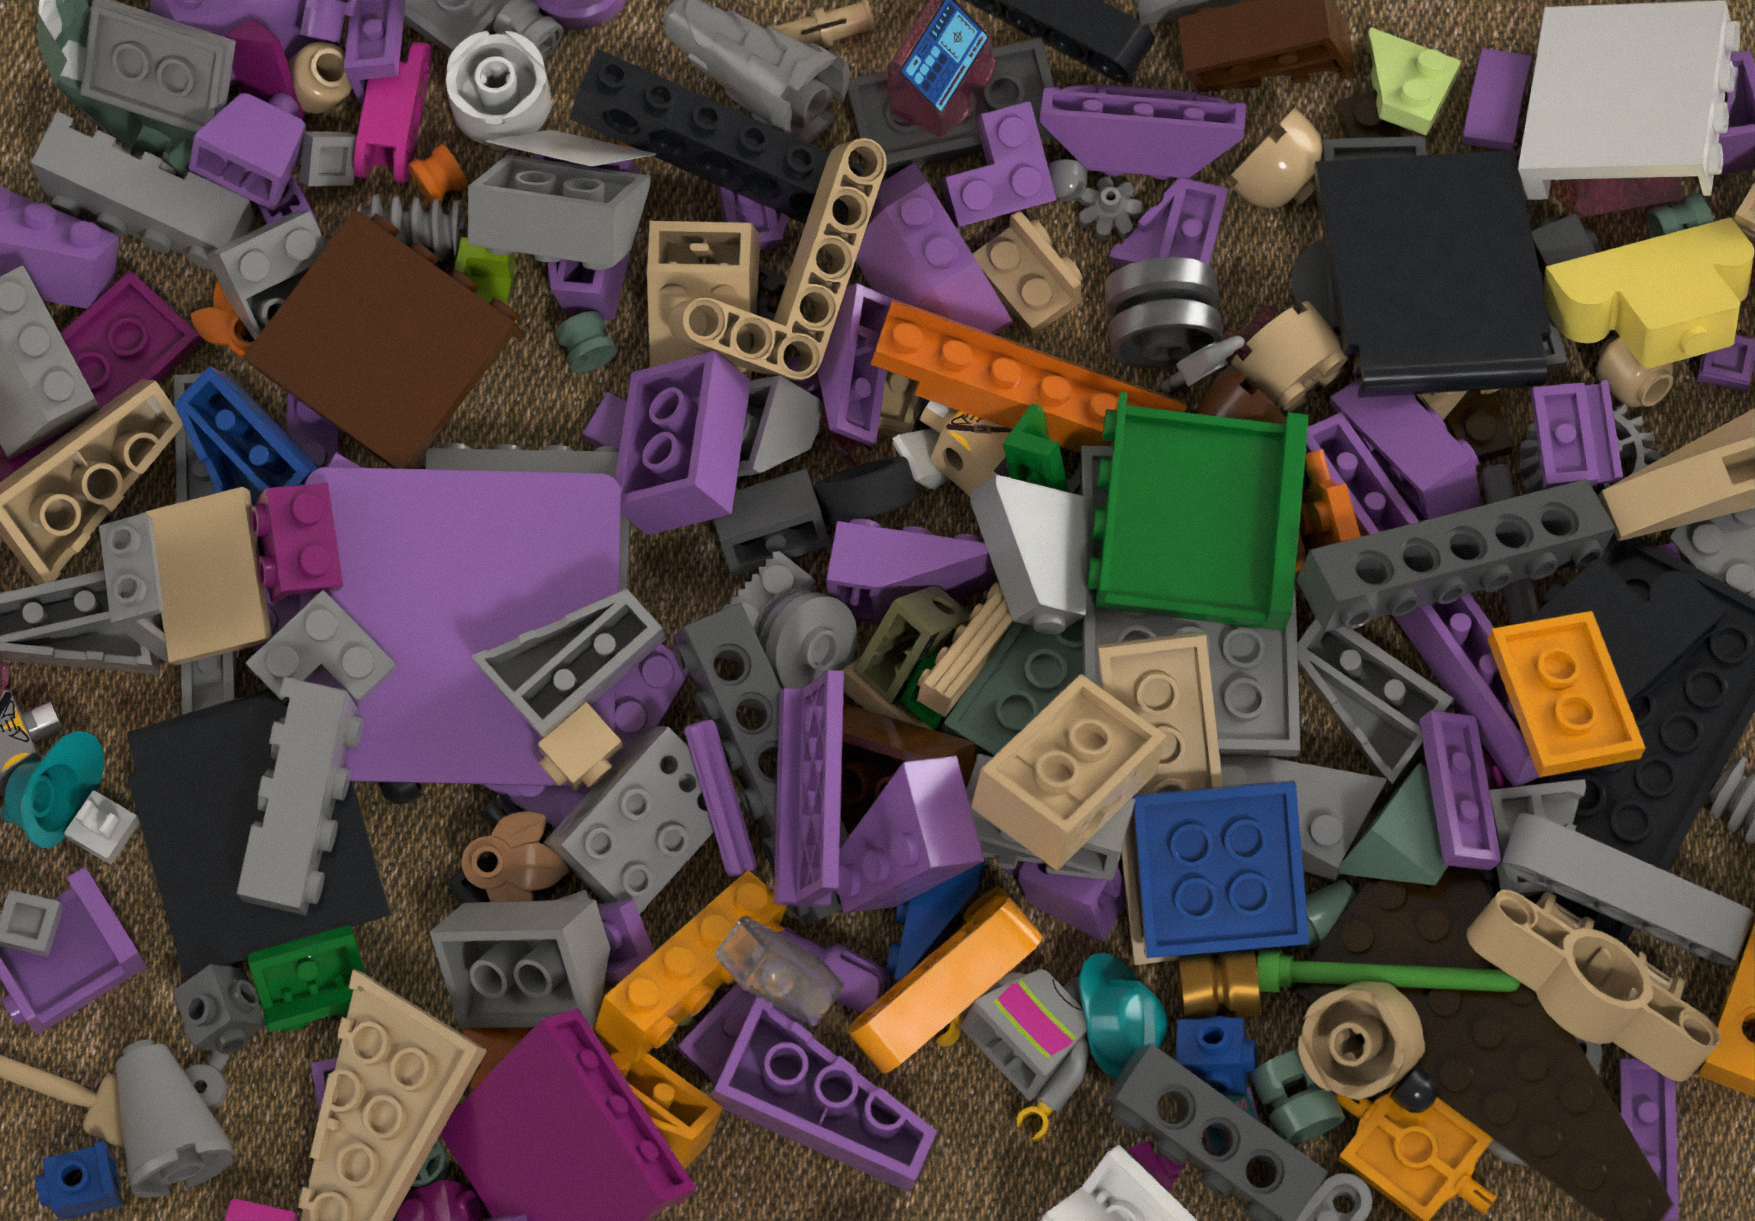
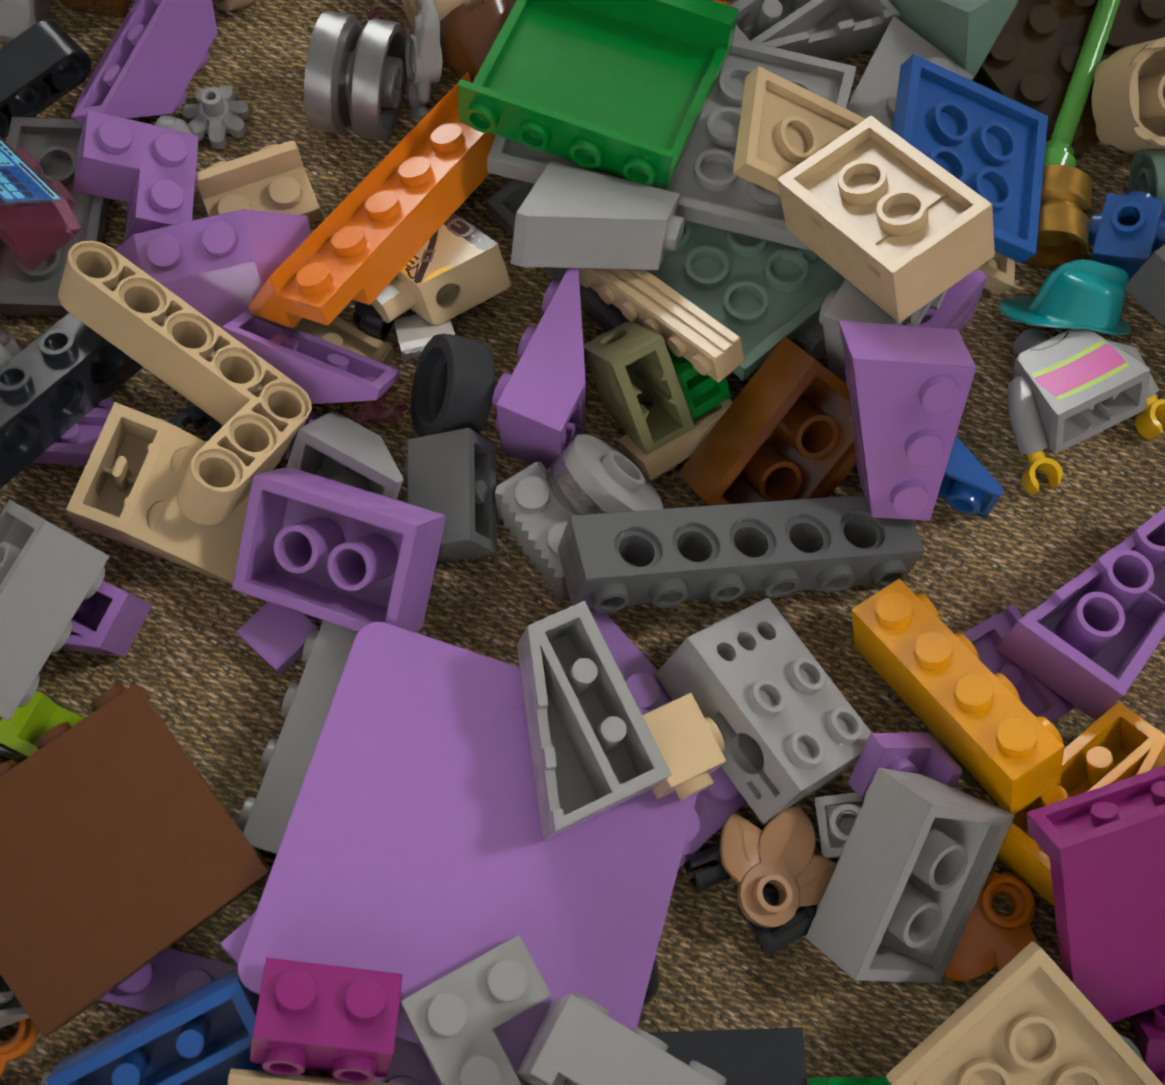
camera: 80 degrees left, 0 degrees up
(586, 341) = (168, 638): sand green wheel -> none
(720, 797) = (770, 610): medium lavender axle -> none
(779, 971) = (995, 596): clear brick -> none
(809, 792) = (814, 516): medium lavender fence -> none
(862, 977) = (970, 556): medium lavender arm -> none
(946, 981) = (1030, 450): light orange beam -> none
(1032, 454) = (487, 204): green panel -> none
(1179, 226) = (265, 62): medium lavender wing -> none

